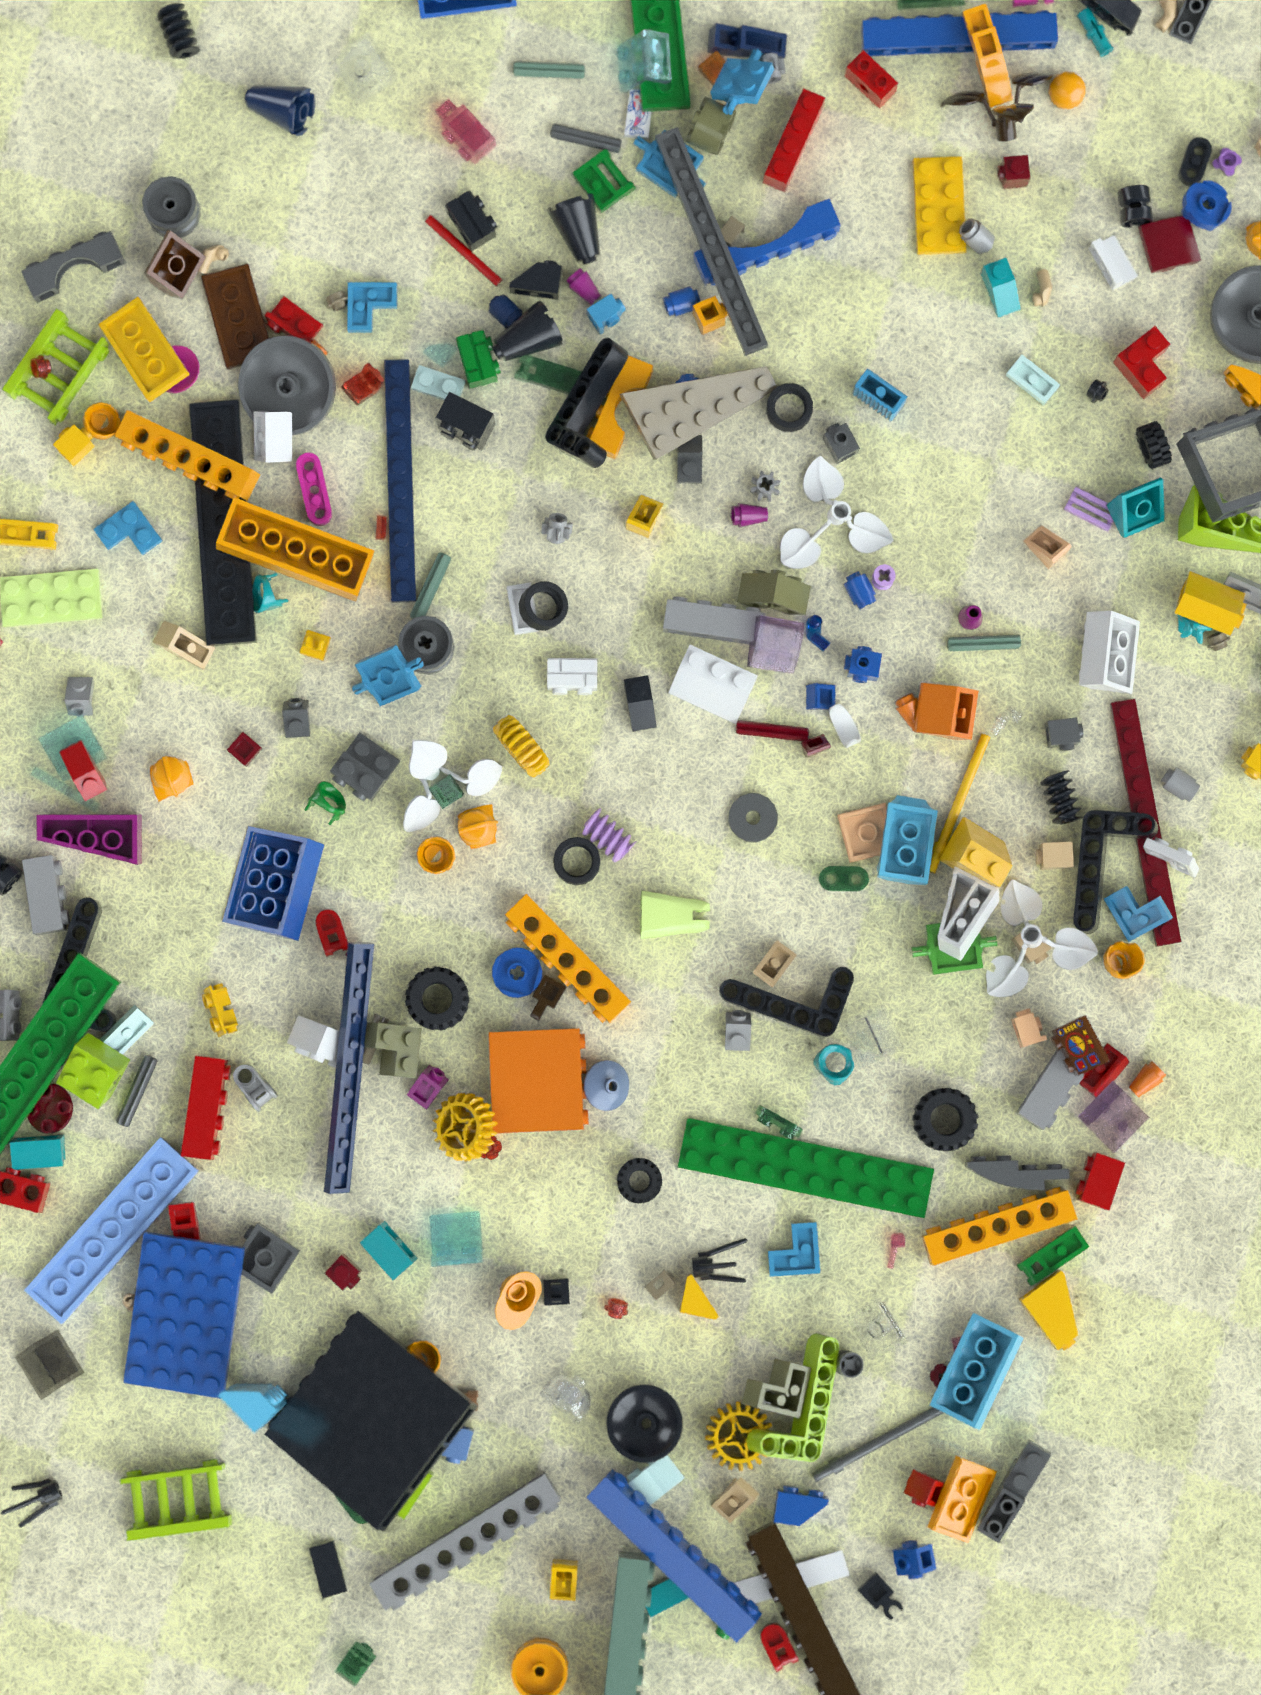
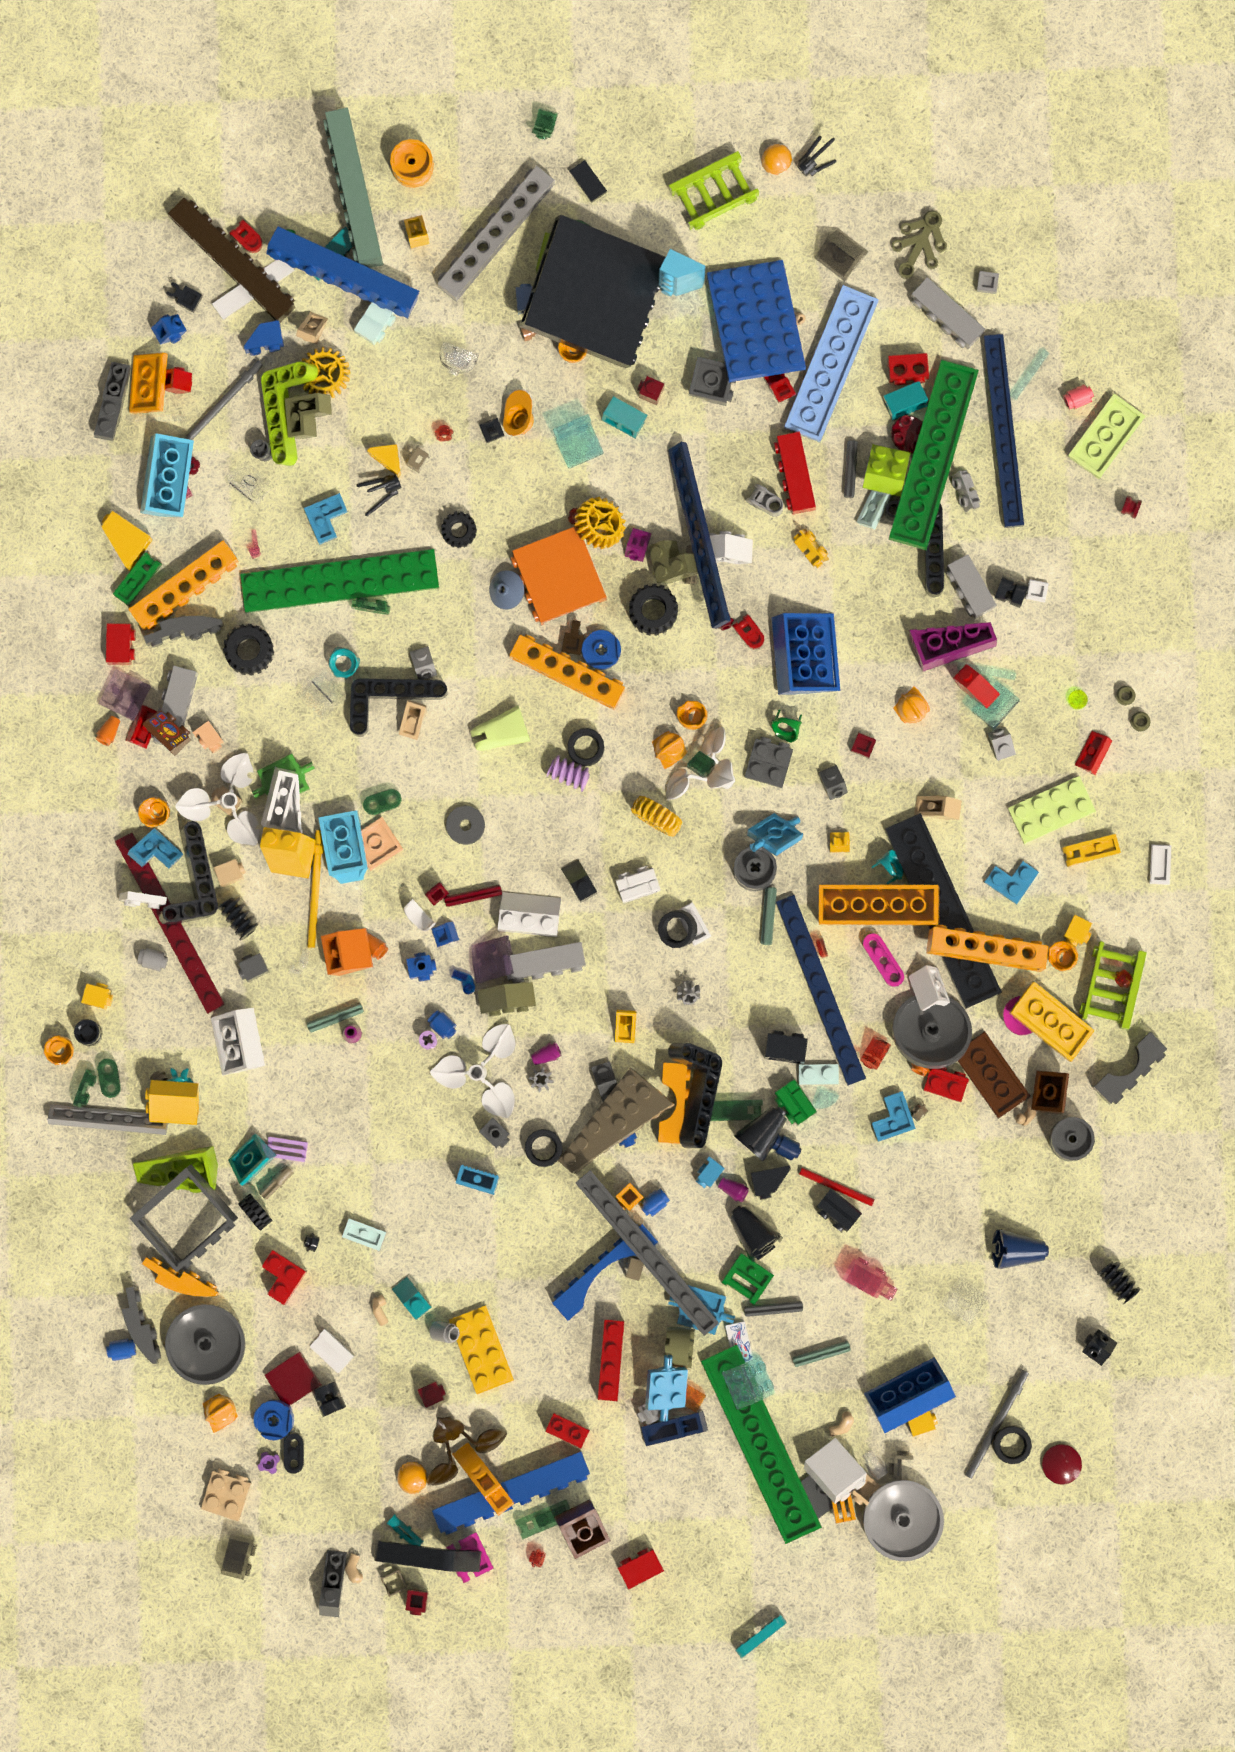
camera: 165 degrees right, 0 degrees up
(84, 1515) = (776, 159): none -> light orange hair
(626, 1426) = (396, 344): black dish -> none
(1047, 546) = (311, 1107): light nougat slope -> none
(1116, 474) = (276, 1182): none -> dark tan axle

